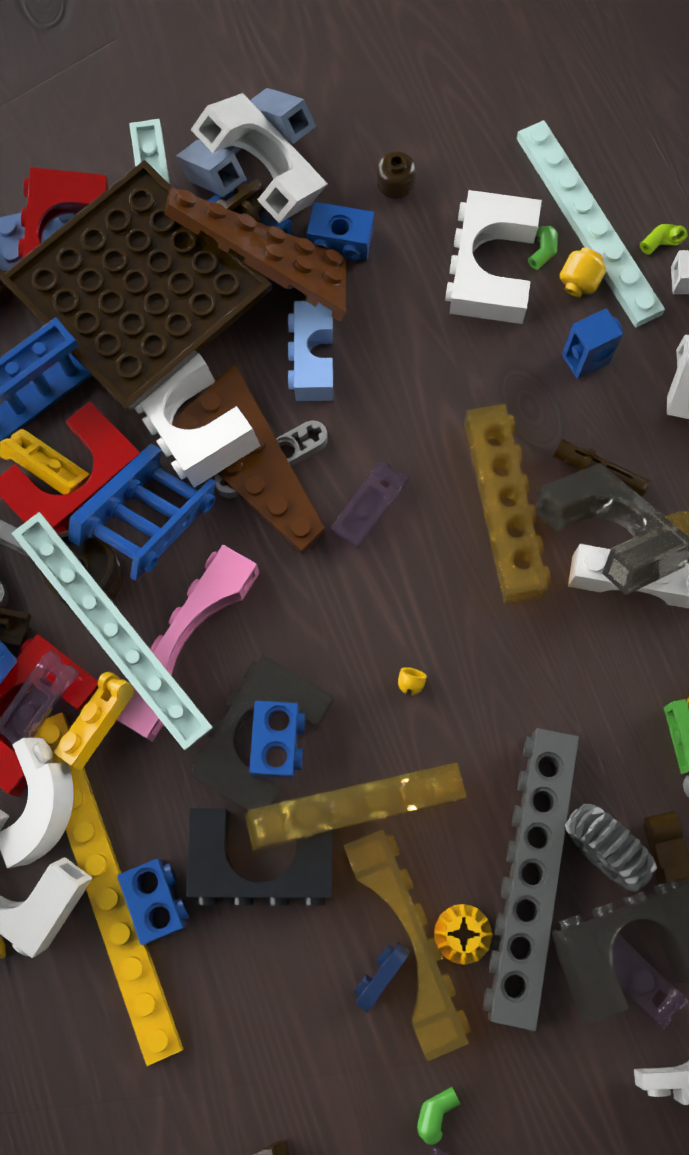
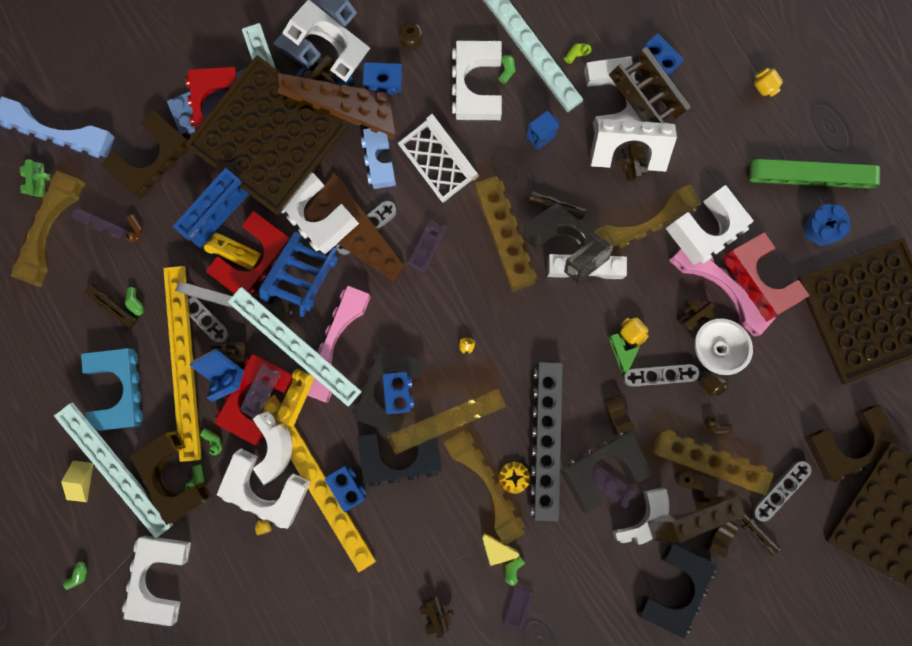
camera: 15 degrees left, 10 degrees up
(371, 988) = (470, 513): dark blue plate -> none
(411, 1070) = (497, 551): none -> light yellow slope
(437, 359) = (450, 147): none -> white fence
(582, 272) = (532, 83): yellow head -> none
(610, 847) = (586, 420): dark grey gear -> none

